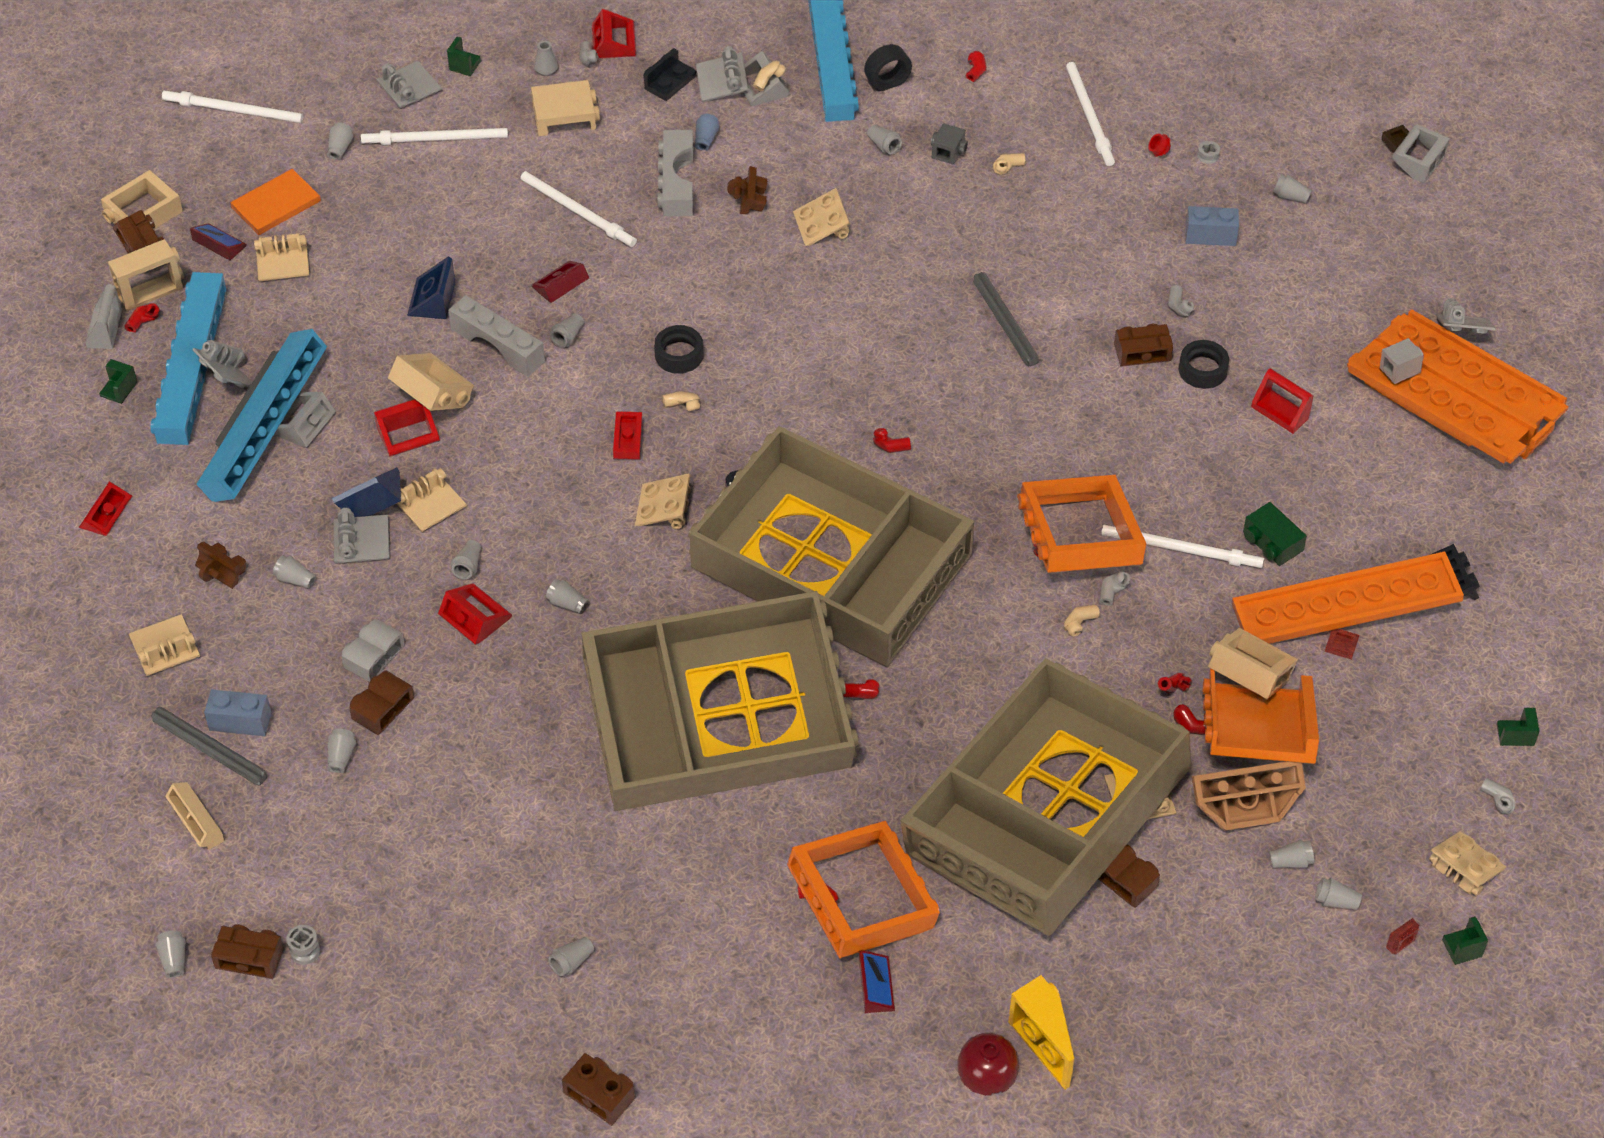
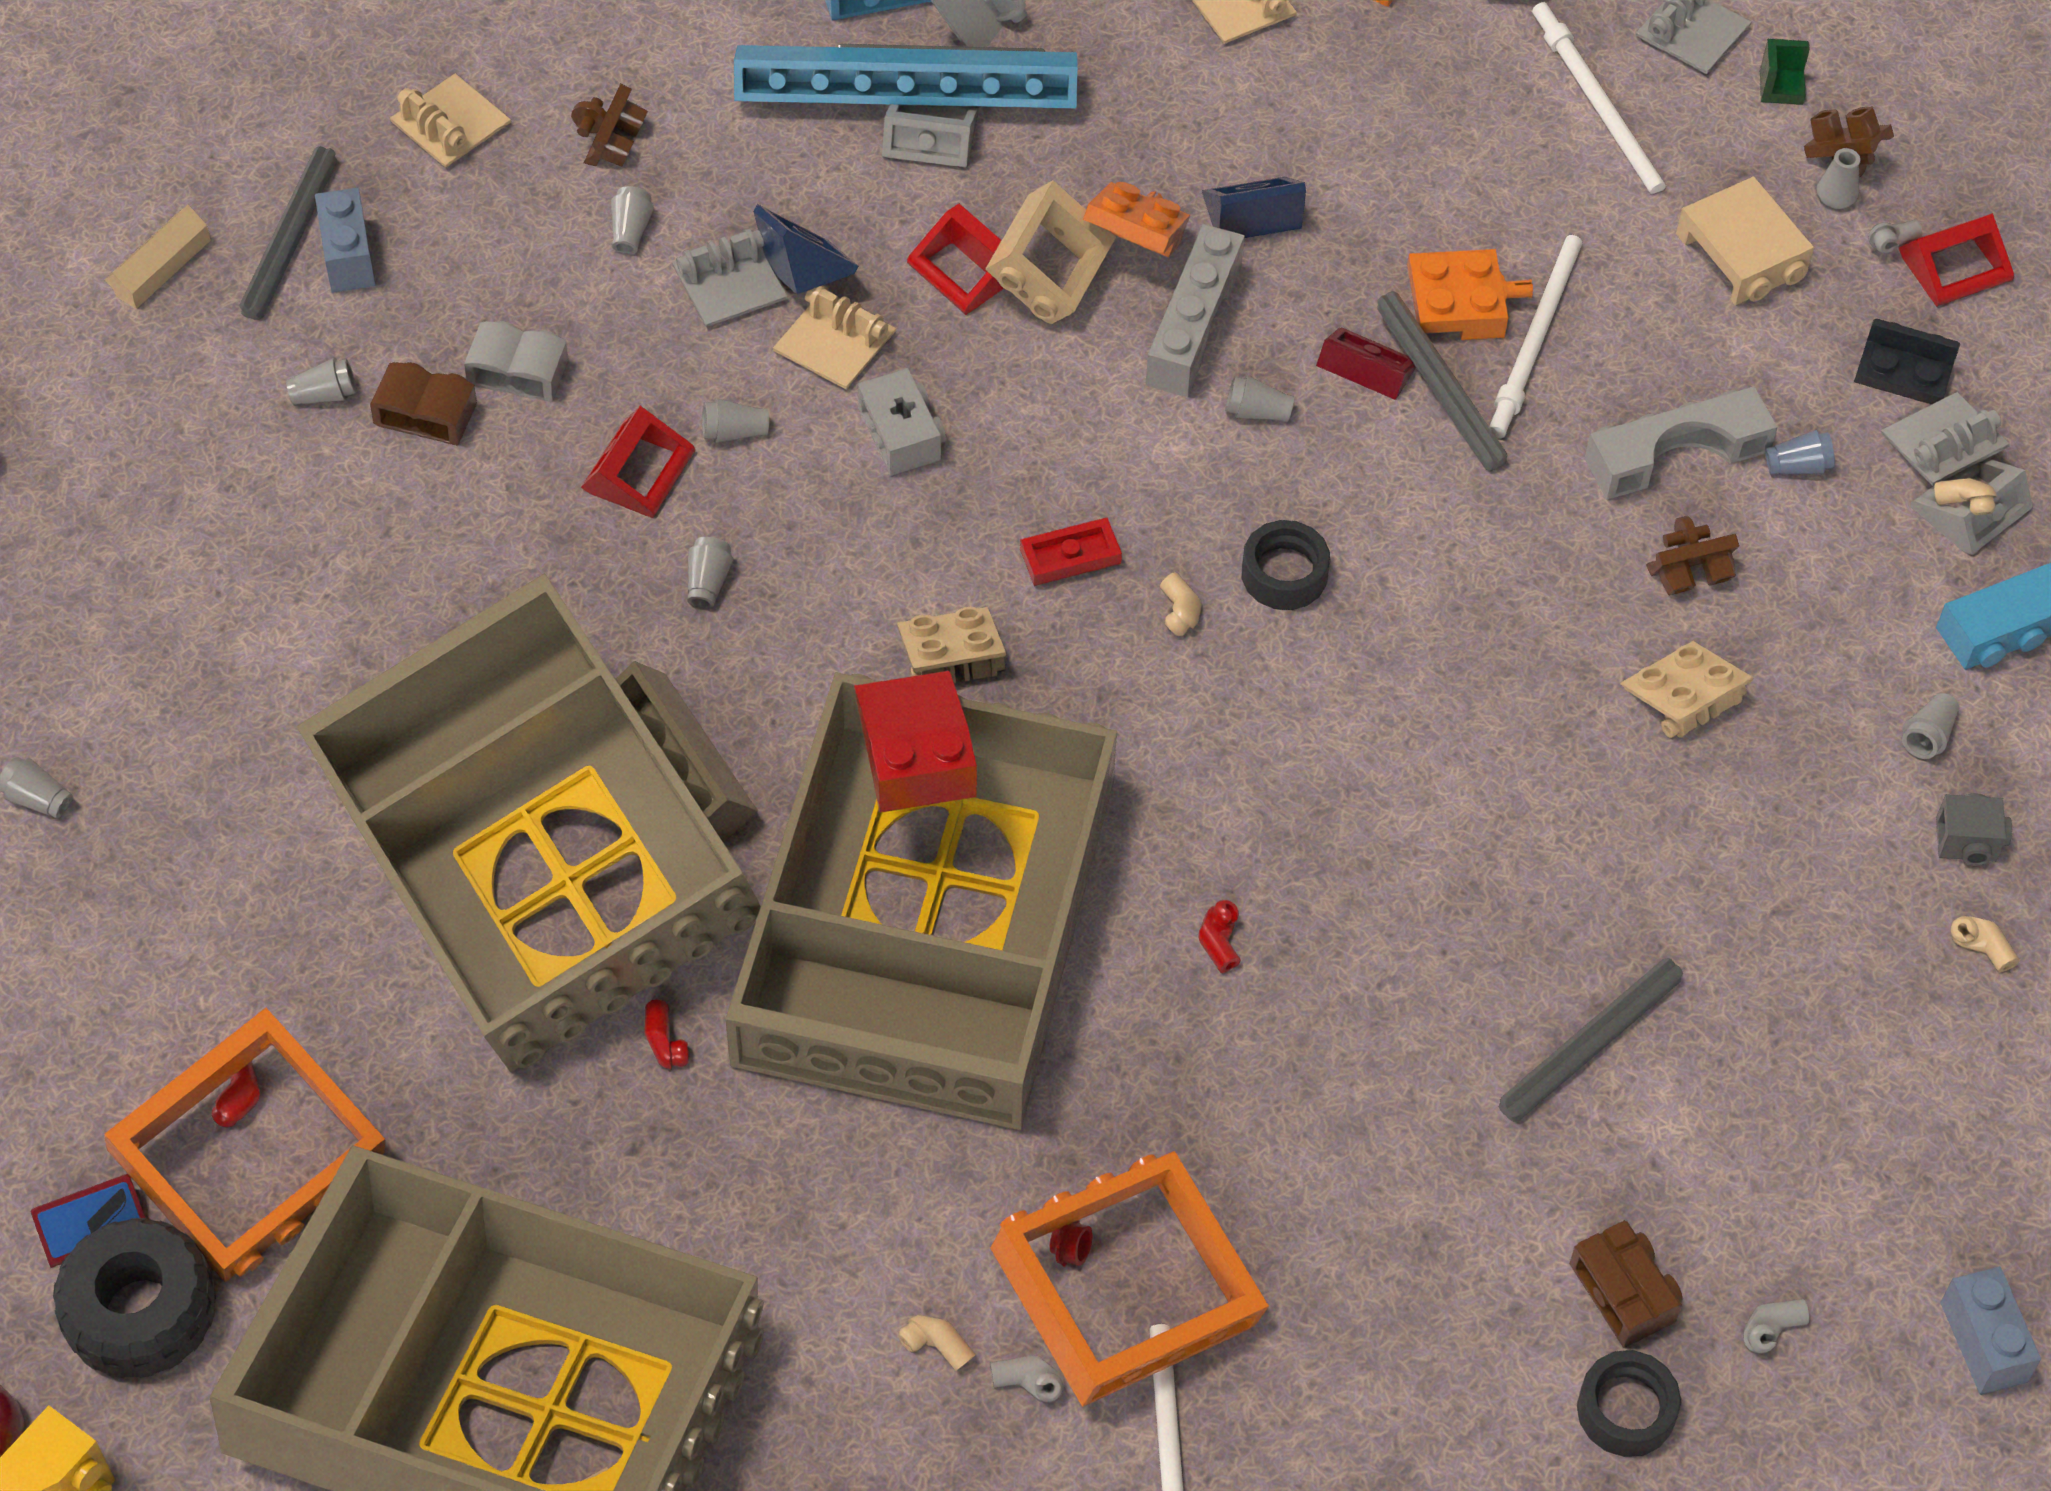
camera: 70 degrees right, 5 degrees up
(427, 337) = (1138, 218): none -> orange plate
(506, 483) = (900, 421): none -> light grey brick
(524, 47) = (1861, 135): none -> reddish brown hips
(539, 226) = (1462, 293): none -> orange plate
(591, 252) = (1442, 381): none -> dark grey axle
(753, 503) = (917, 741): none -> red slope
(938, 986) = (154, 1336): none -> black tyre

